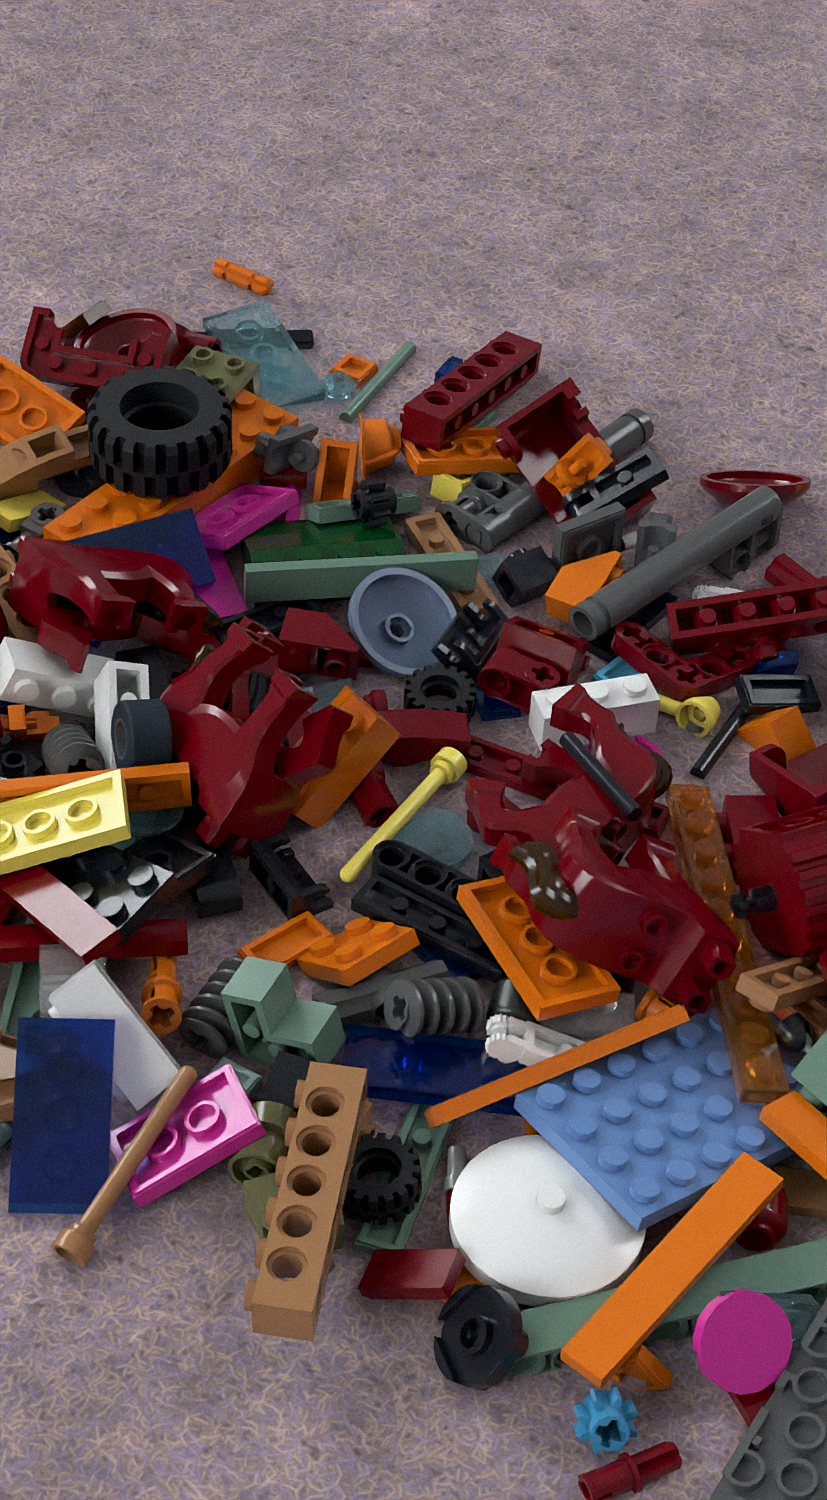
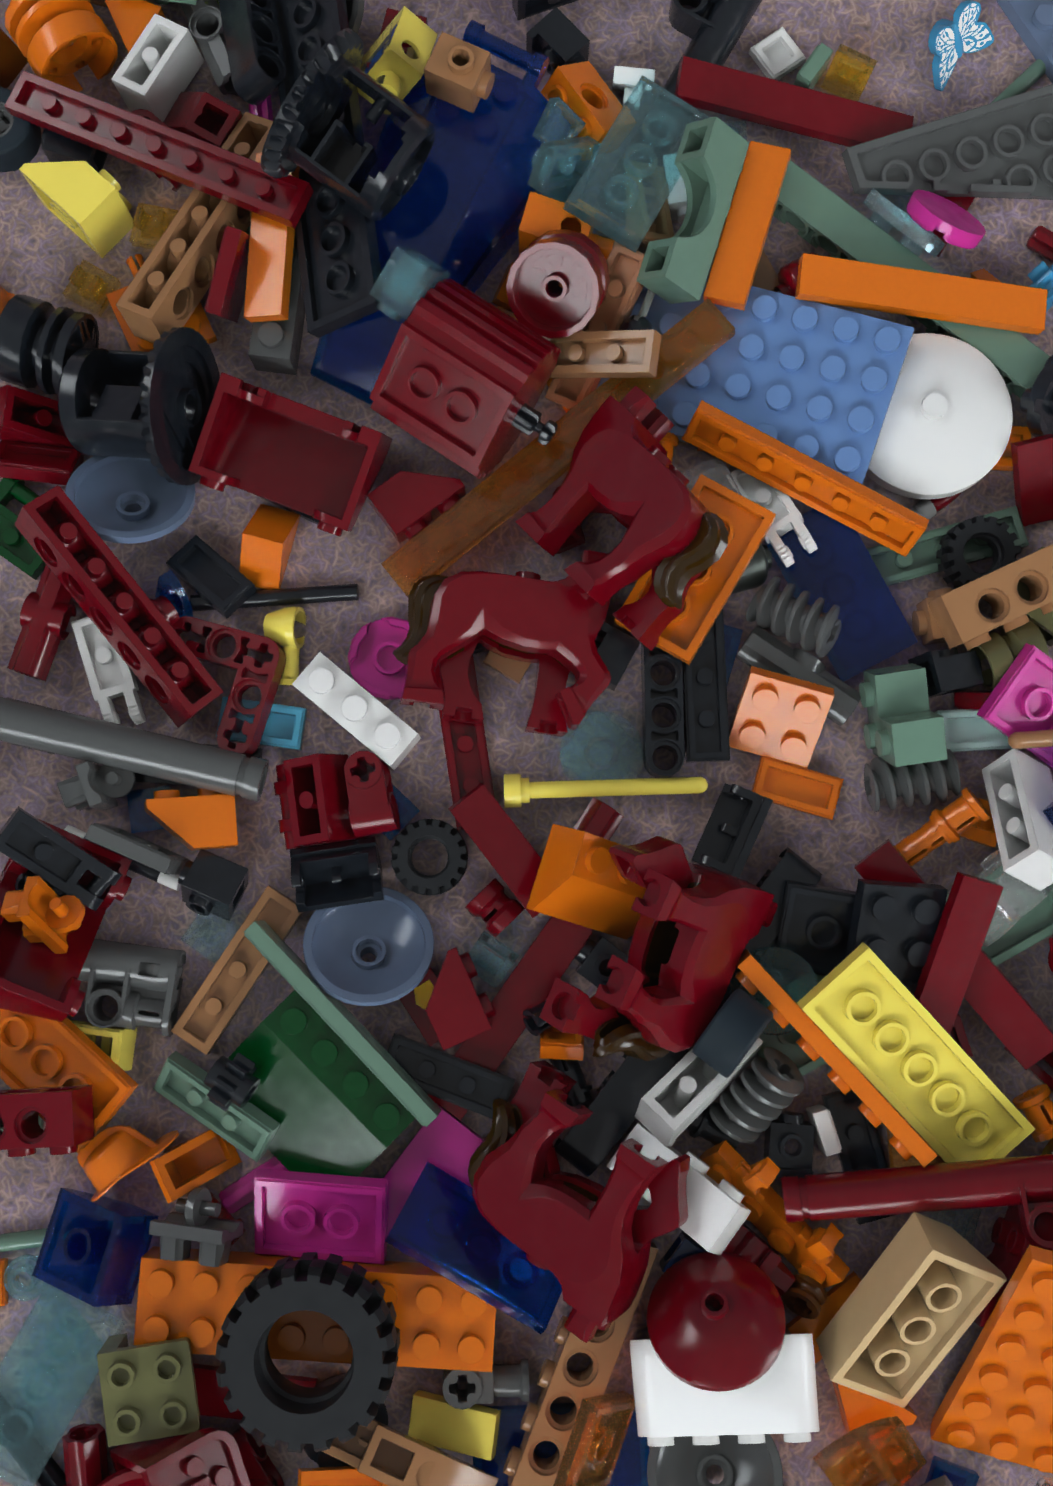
camera: 125 degrees left, 40 degrees up
(325, 406) = (94, 1248): none -> clear blue slope
(601, 776) = (500, 612): black bar -> none

